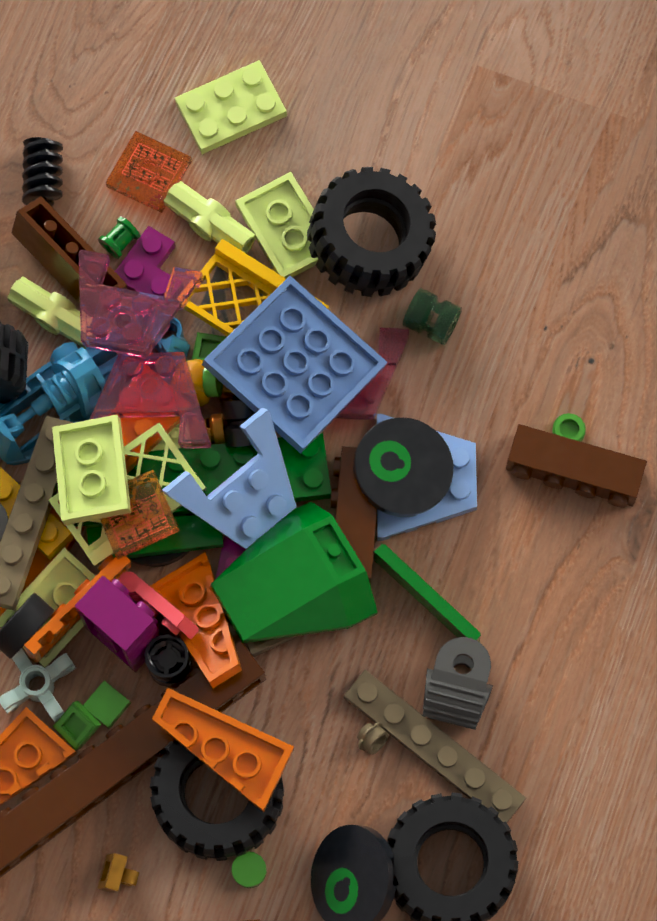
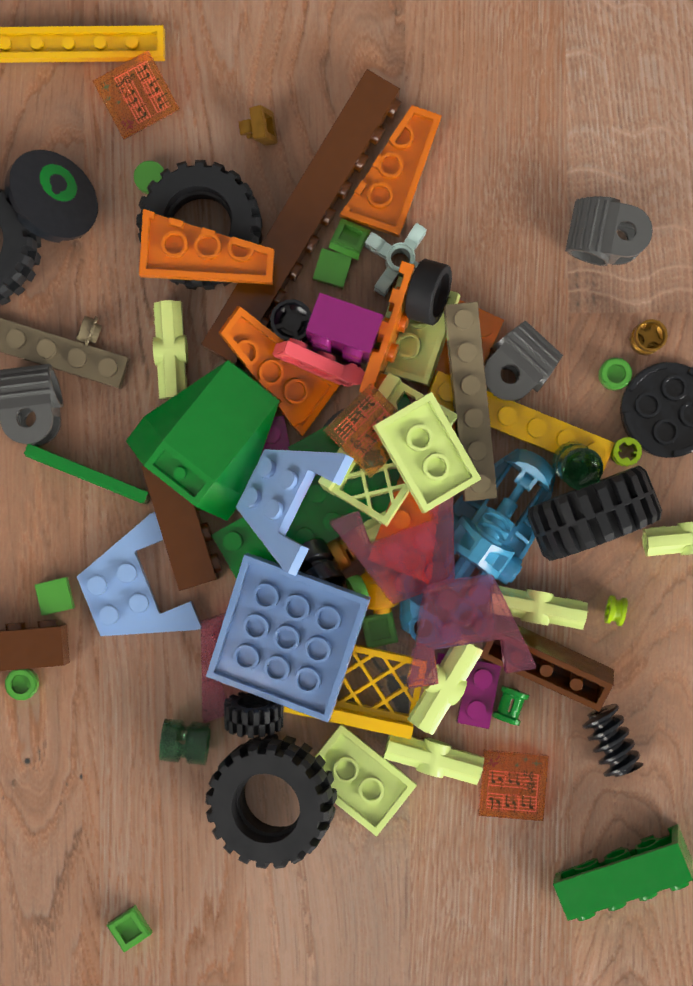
camera: 155 degrees right, 15 degrees up
(82, 57) = (625, 876): none -> green wedge
(189, 256) = (451, 686): none -> yellowish green piece
(230, 107) = (463, 883): yellowish green plate -> none
(298, 685) = (170, 348): none -> yellowish green piece
(360, 311) = (252, 715): none -> black tyre
(403, 467) = (151, 581): black tile -> none
(506, 497) = (54, 596): none -> bright green tile
(551, 180) = (129, 928): none -> bright green tile

